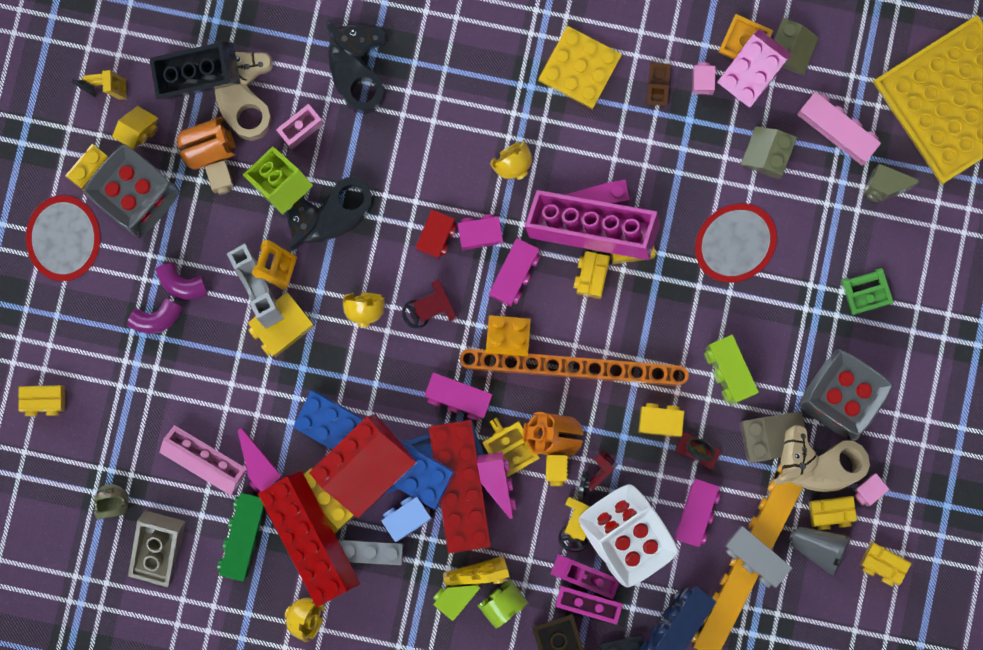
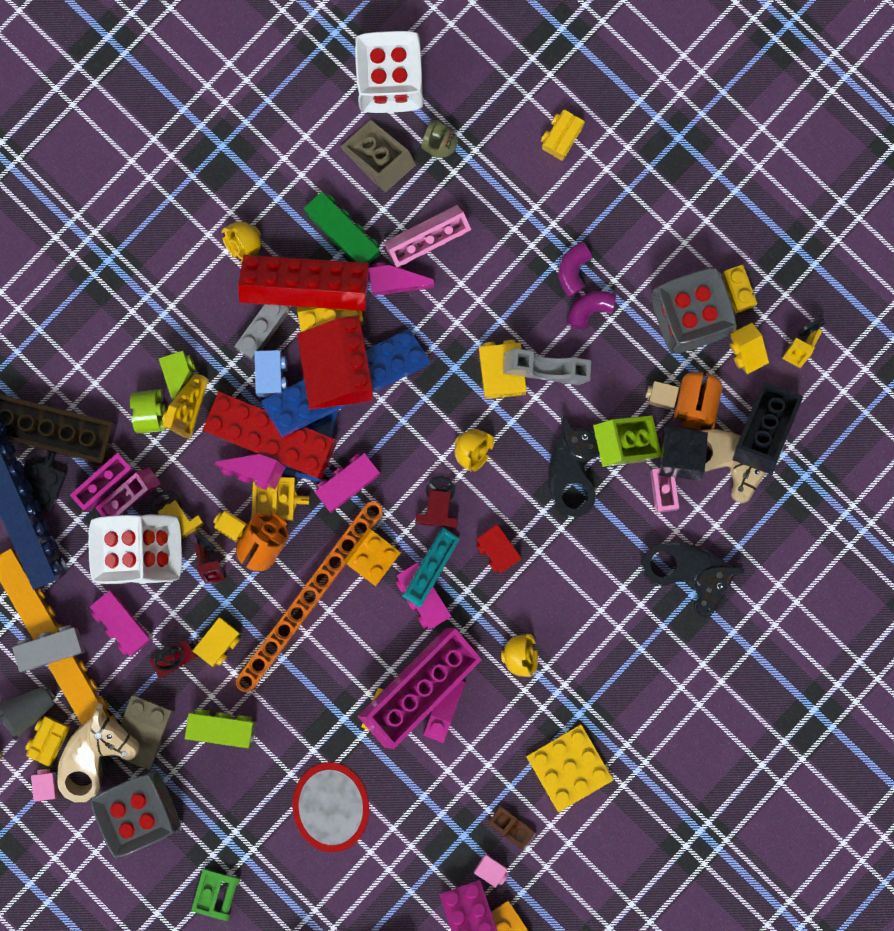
camera: 120 degrees right, 0 degrees up
(62, 238) = (692, 233): flat silver sticker -> none
(76, 581) = (389, 71): none -> white piece
(260, 126) = (683, 453): none -> black brick
(280, 268) = (550, 398): light orange plate -> none
(480, 232) = (476, 588): dark pink brick -> none
(486, 280) = (431, 567): none -> teal tile
(592, 274) = (380, 663): yellow brick -> none
(768, 151) = (391, 887): olive slope -> none

